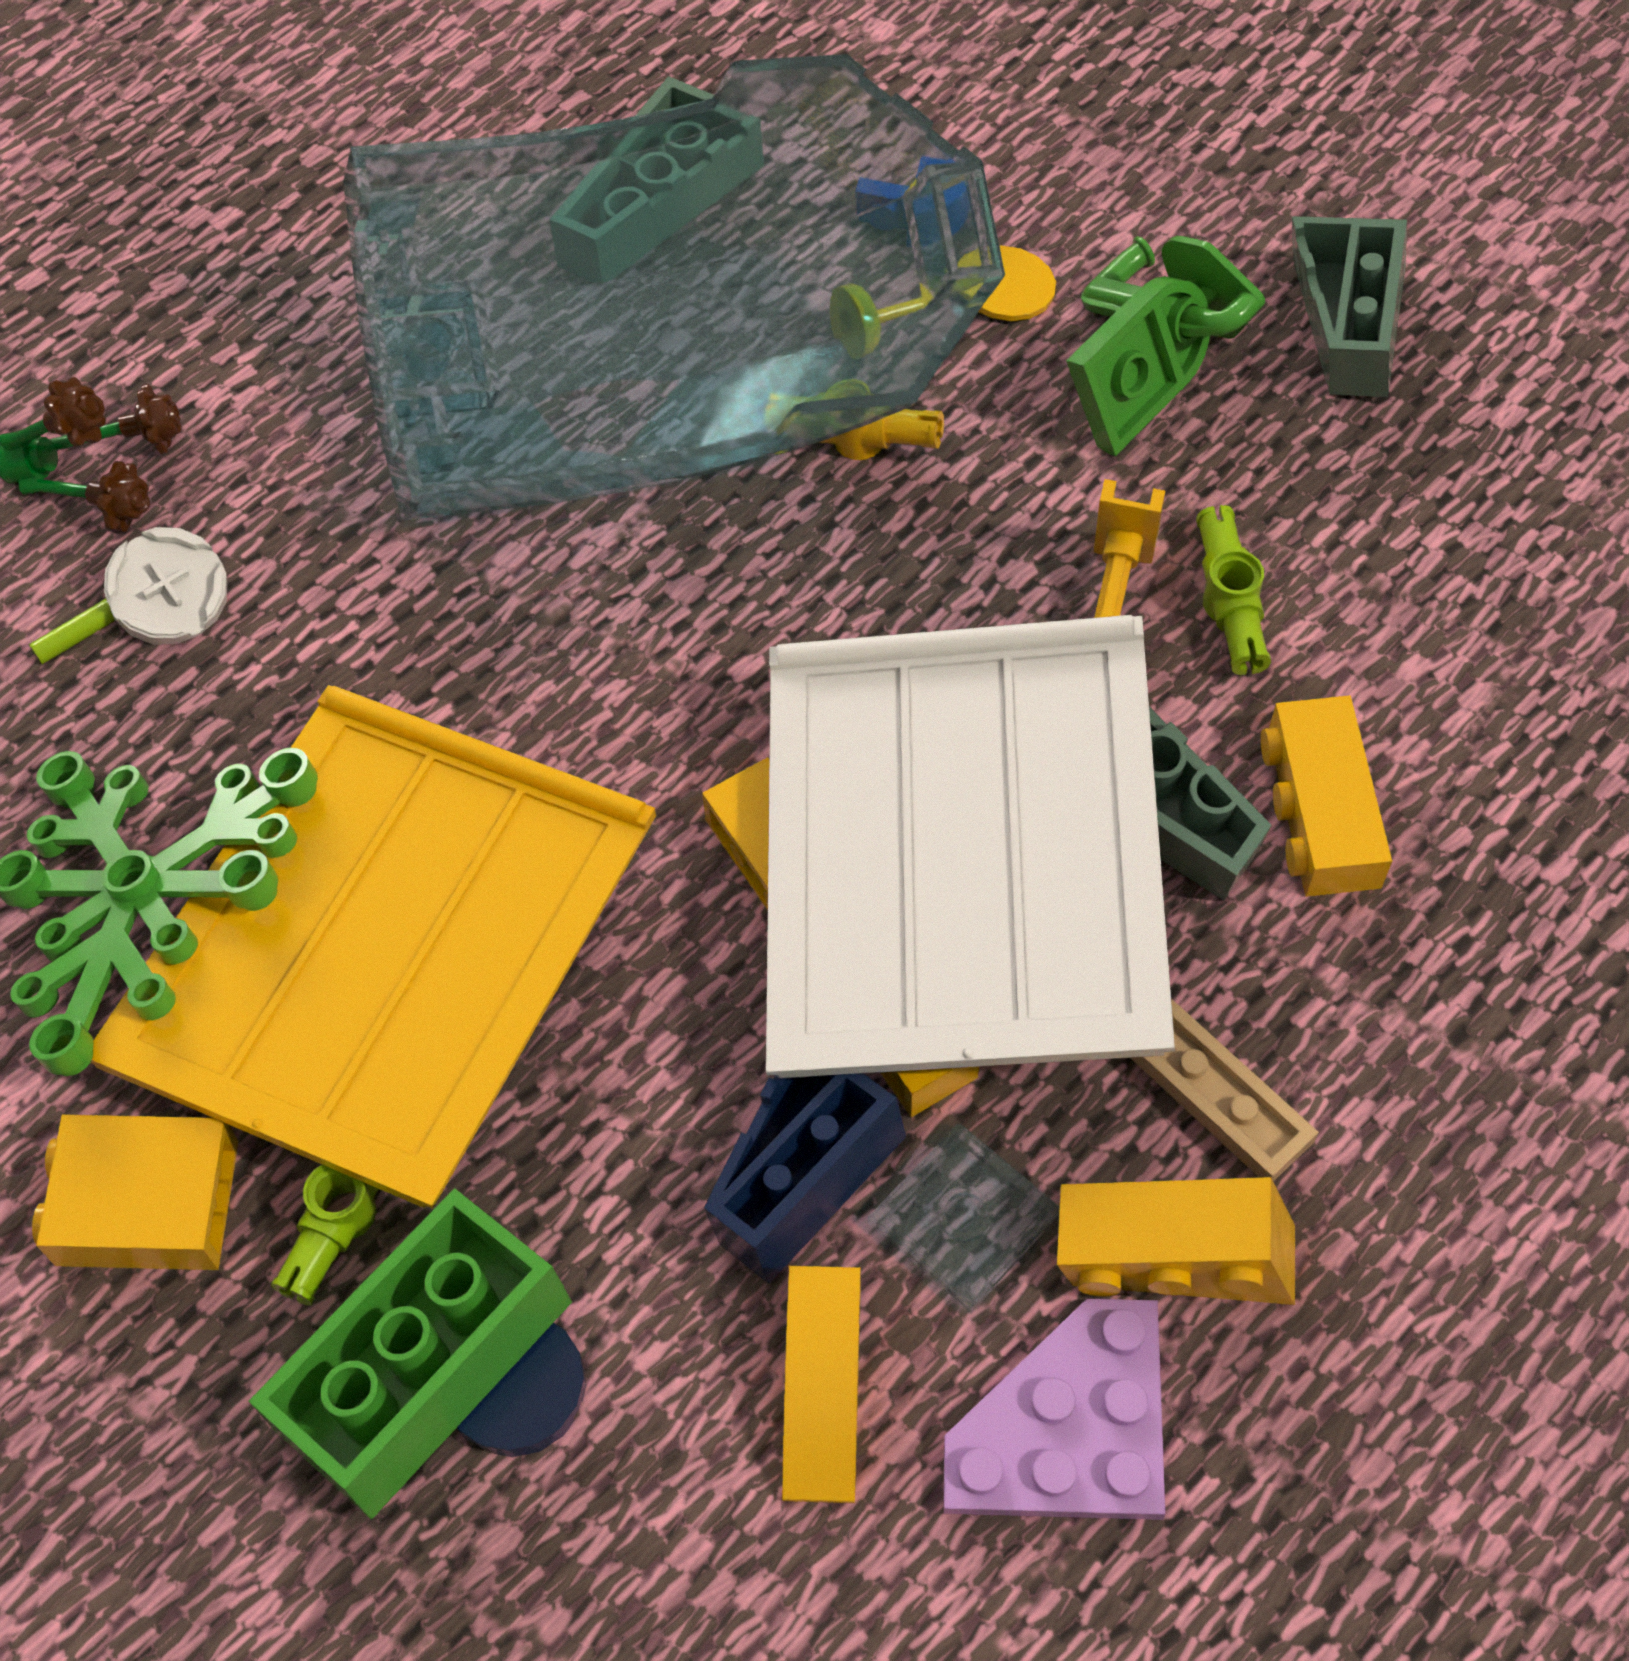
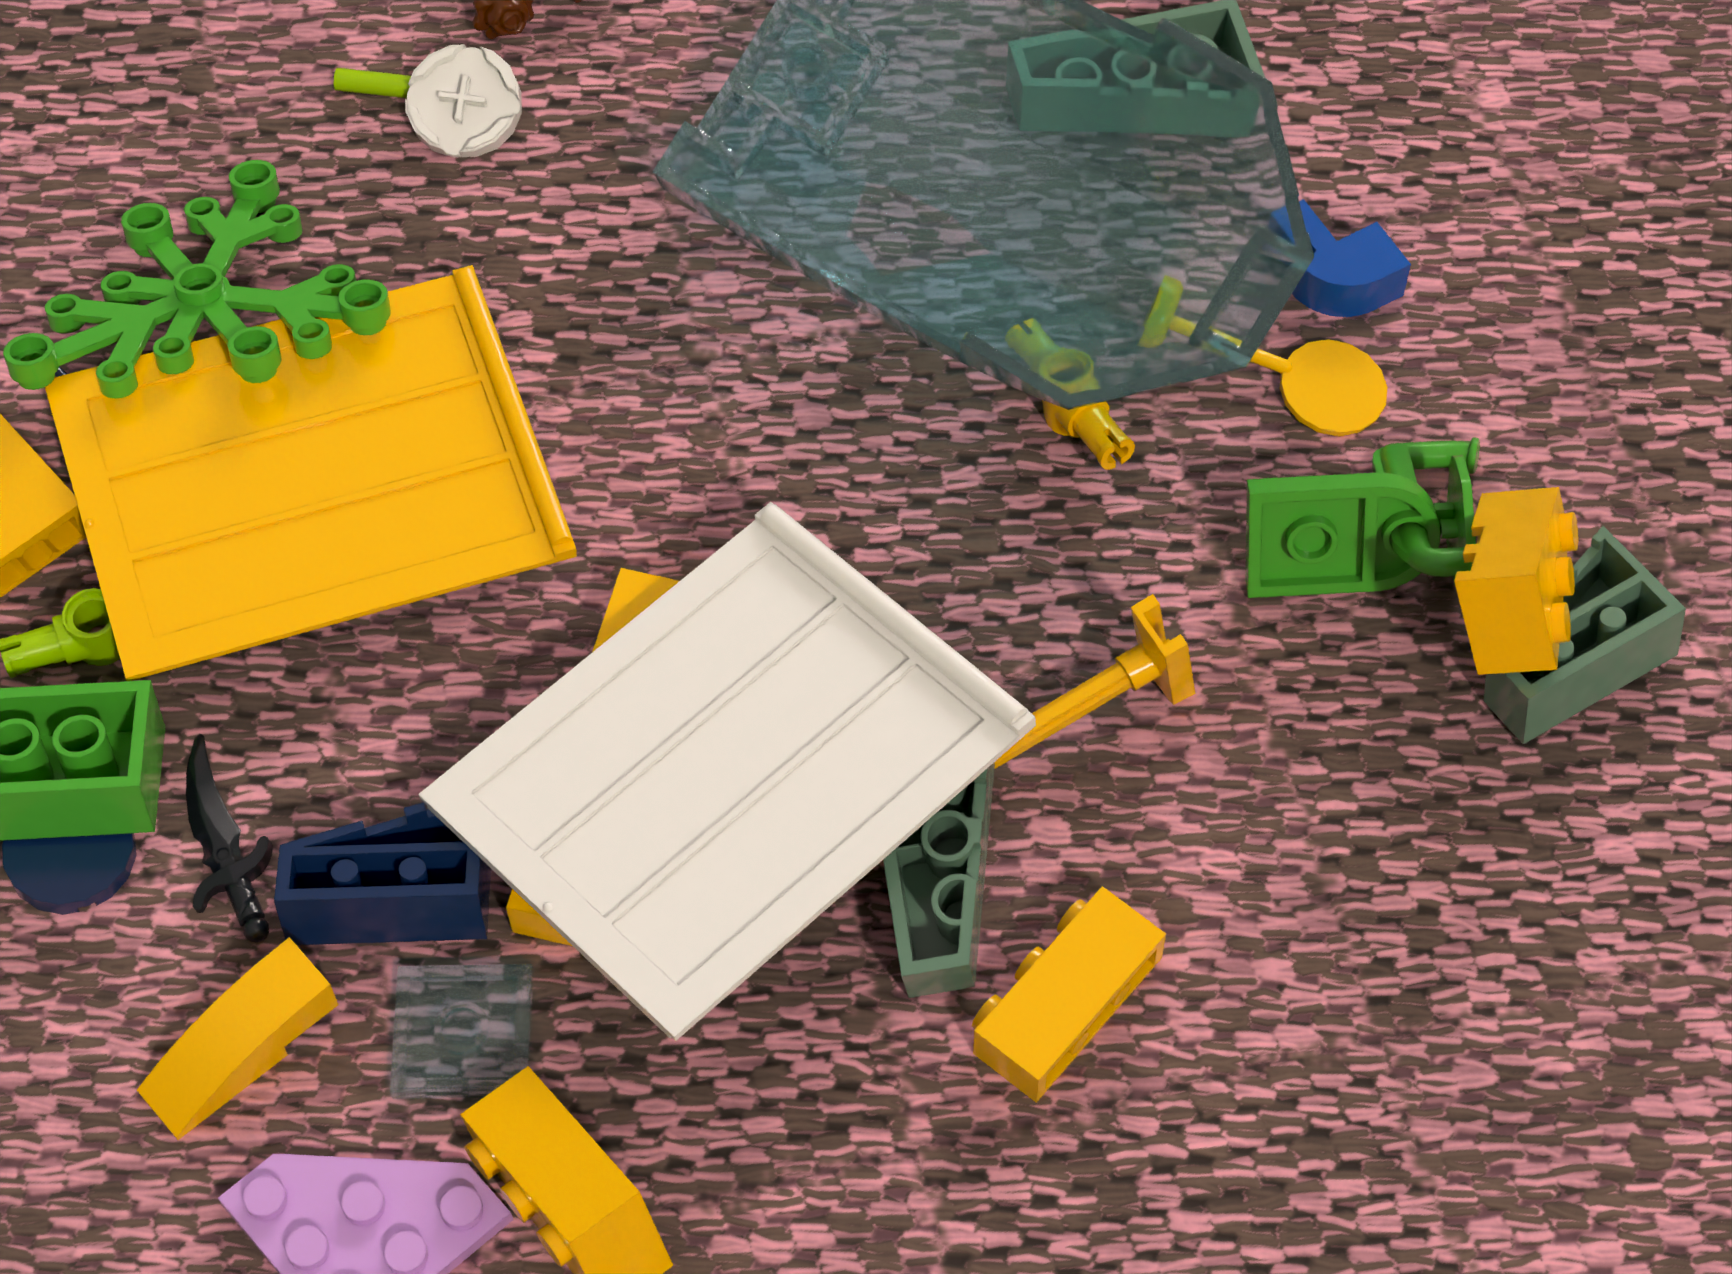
camera: 45 degrees right, 0 degrees up
(627, 1266) = (220, 843): none -> black piece
(1229, 1099) = (728, 1120): tan plate -> none
(1237, 610) = (1181, 800): lime pin -> none
(1309, 279) = (1518, 580): none -> yellow wedge

